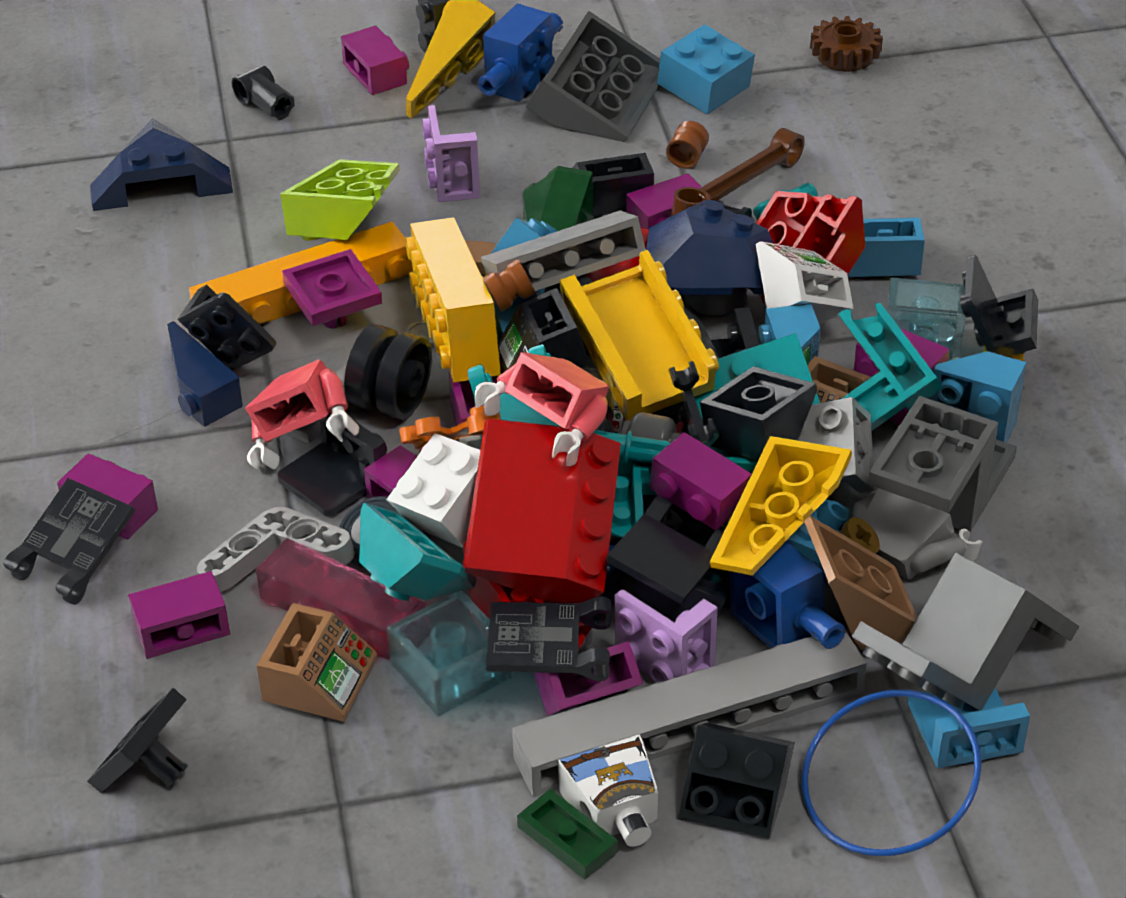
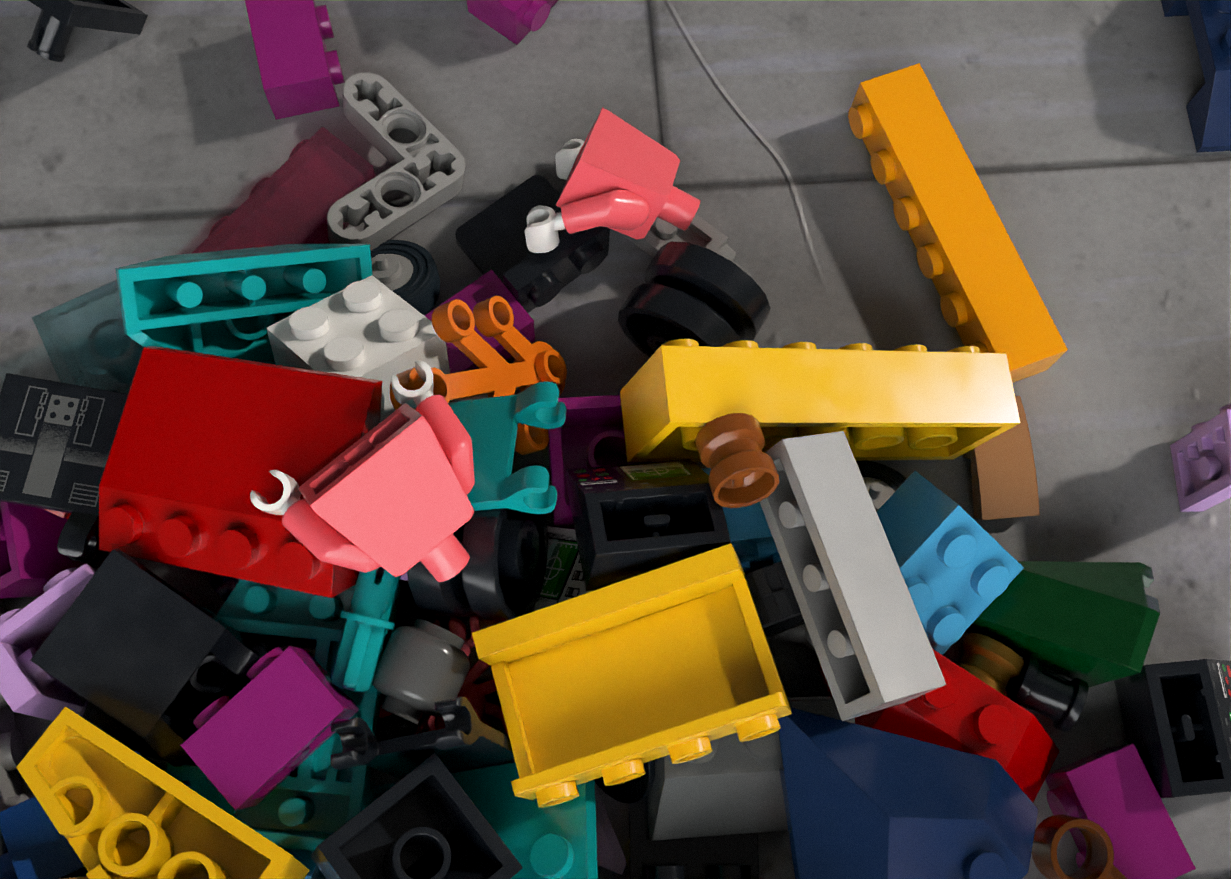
camera: 90 degrees right, 30 degrees up
(204, 383) = (747, 80): dark blue slope -> none
(225, 328) = (814, 100): black bracket -> none
(315, 664) = (152, 191): medium nougat slope -> none
(332, 288) = (894, 246): magenta tile -> none
(335, 198) = (1120, 267): lime wedge -> none

